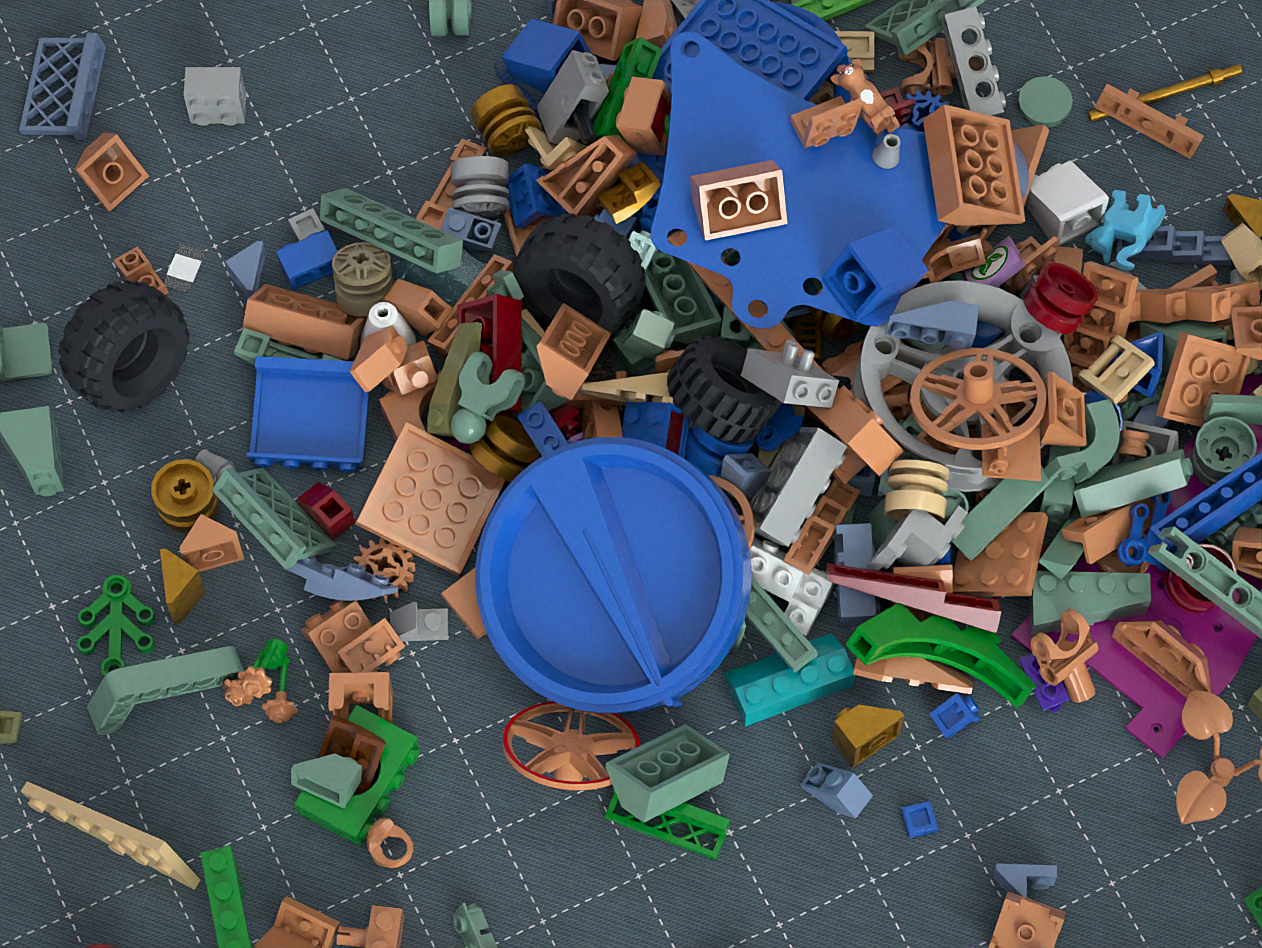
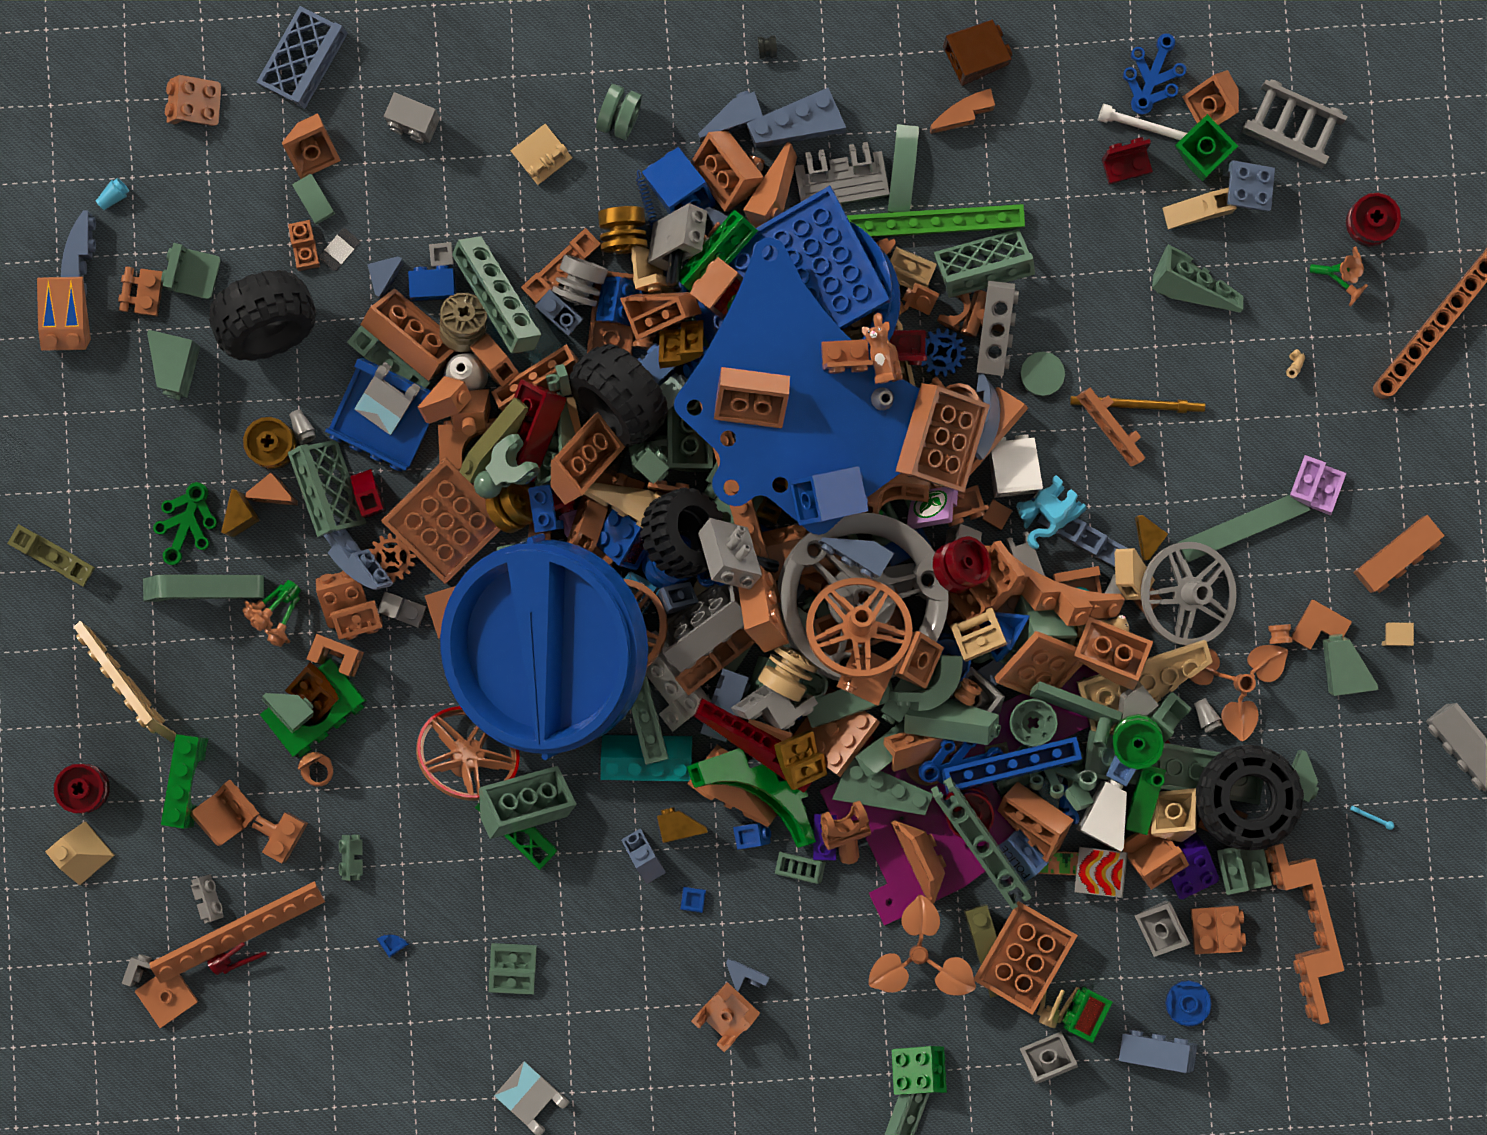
camera: 20 degrees right, 20 degrees up
(133, 223) = (313, 199): none -> sand green slope
(305, 395) = (383, 402): none -> light grey flag
(379, 86) = (541, 154): none -> tan hinge
(878, 72) = (920, 298): none -> nougat bracket
(974, 589) = (800, 759): none -> pearl gold slope
(1032, 740) = (817, 879): none -> sand green slope

